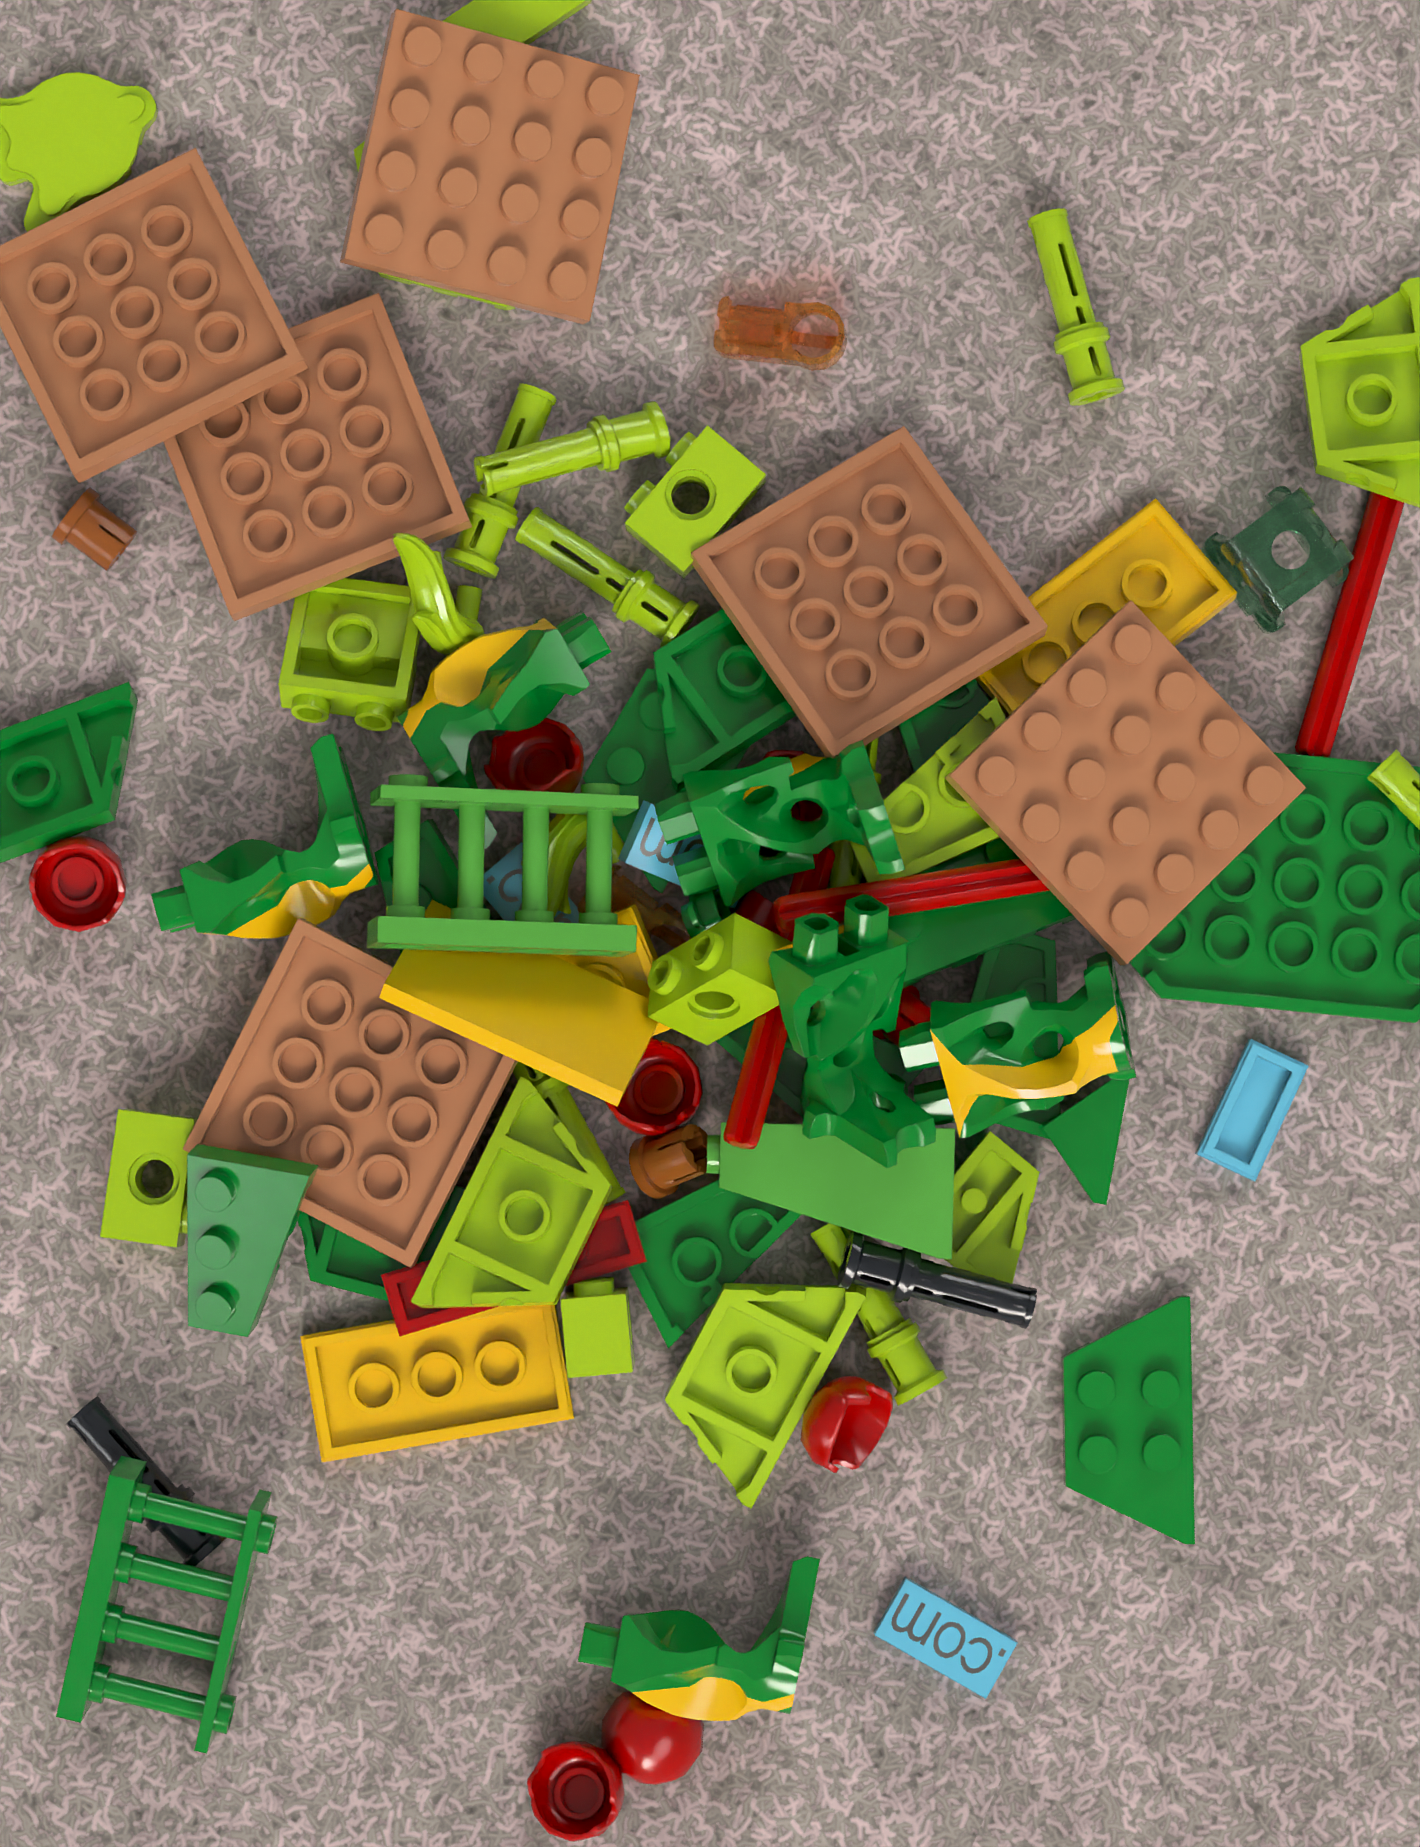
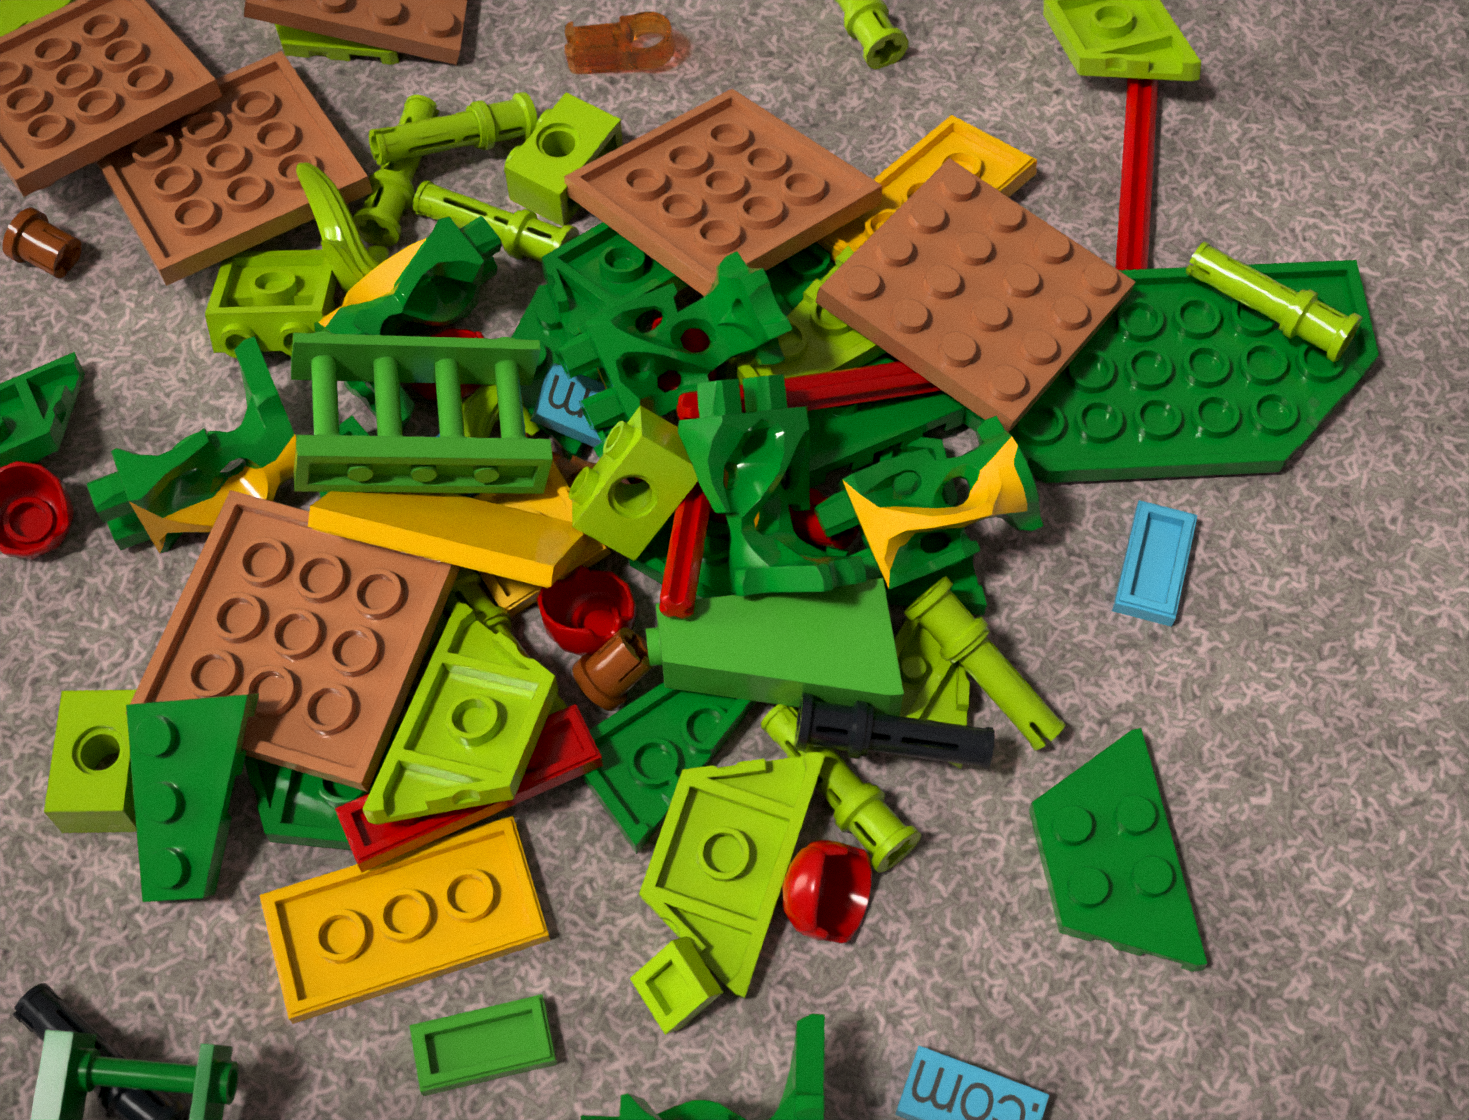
camera: 10 degrees left, 25 degrees down
(500, 1511) = (482, 1045): none -> bright green tile
(597, 1329) = (560, 825): lime brick -> none
(688, 1489) = (676, 985): none -> lime plate
(1030, 1194) = (966, 641): none -> lime pin
(1090, 1135) = (1011, 595): green slope -> none
(1248, 564) = (1062, 113): clear green piece -> none

